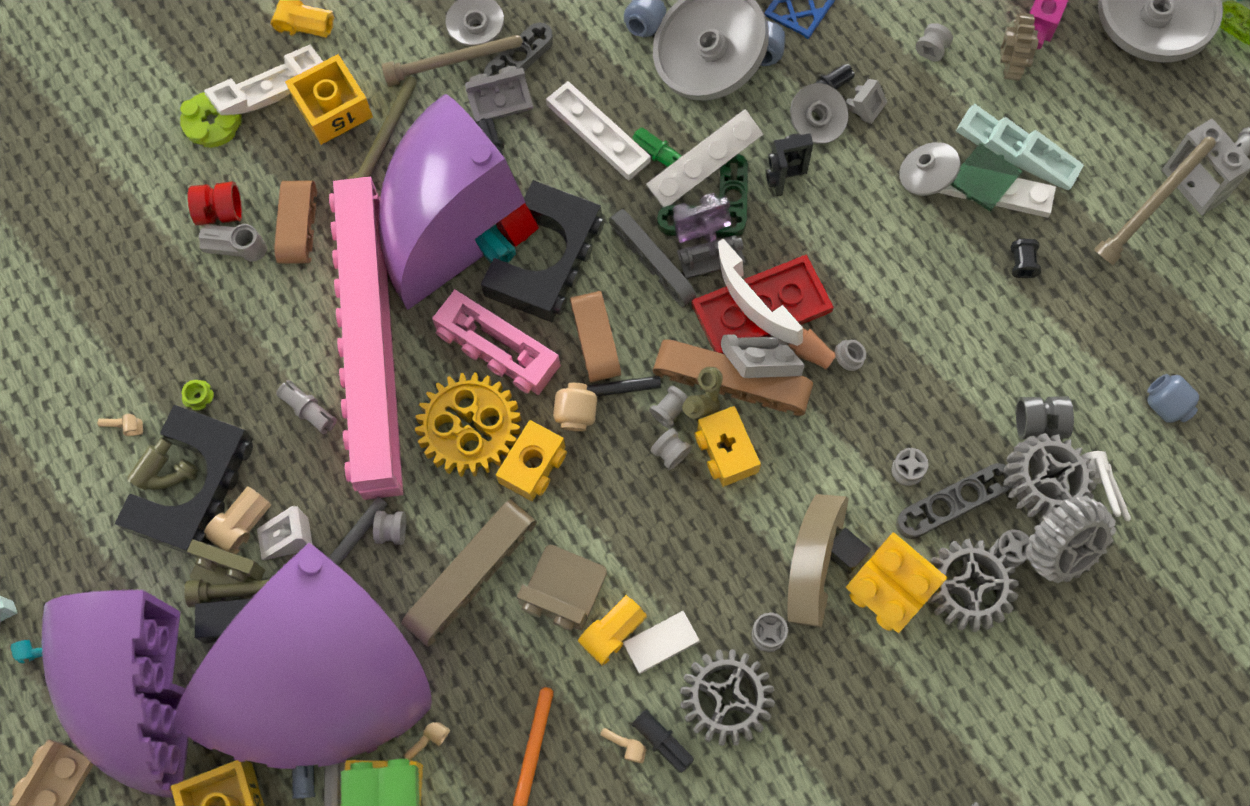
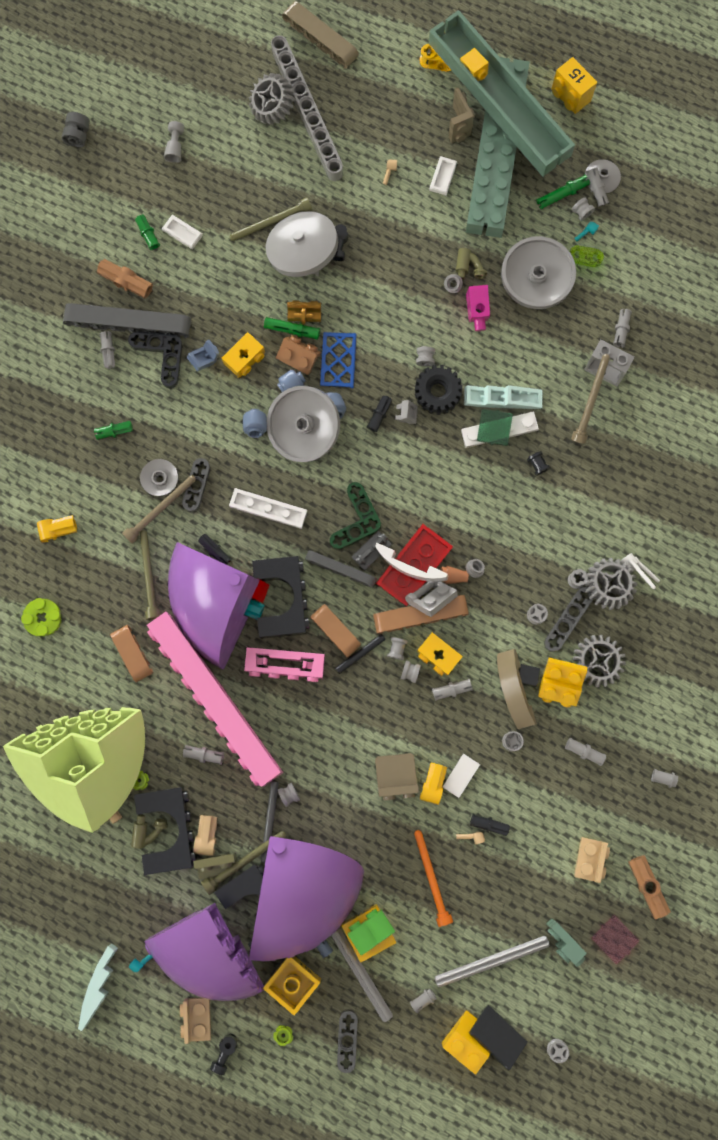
camera: 30 degrees left, 10 degrees up
(132, 326) = (82, 763): none -> yellowish green brick
(214, 203) = (79, 668): red wheel -> none
(232, 241) = (102, 684): light grey piece -> none
(264, 88) = (63, 580): white slope -> none
(284, 534) = (235, 830): white slope -> none
(329, 99) = (106, 571): yellow brick -> none
(435, 732) = (373, 885): tan hand -> none
(449, 446) = (294, 734): yellow gear -> none
(467, 571) = (344, 795): dark tan beam -> none
(498, 94) = (201, 517): light grey bracket -> none
(532, 442) = (337, 707): yellow brick -> none
(575, 407) = (348, 677): tan head -> none
(655, 147) = (309, 502): green axle -> none
(703, 219) = (358, 536): clear purple hips -> none
(704, 158) = (338, 497): white plate -> none
(706, 404) = (415, 636): olive plant -> none
(712, 689) = (509, 776): light grey gear -> none
(719, 508) = (452, 689): none -> light grey pin
(788, 159) = (385, 471): black bracket -> none
(827, 104) = (393, 433): light grey dish -> none
(876, 712) = (585, 751): none -> light grey pin
(929, 169) = (468, 440): light grey dish -> none
(934, 74) = (438, 376): none -> black tyre
(997, 439) = (571, 578): none -> light grey bush
(1016, 543) = (612, 627): light grey wheel -> none
(1019, 46) = (474, 339): dark tan gear -> none
(1048, 416) = (594, 549): dark grey wheel -> none
(1071, 539) = (637, 612): light grey gear -> none
(1173, 398) = (650, 504): sand blue head -> none

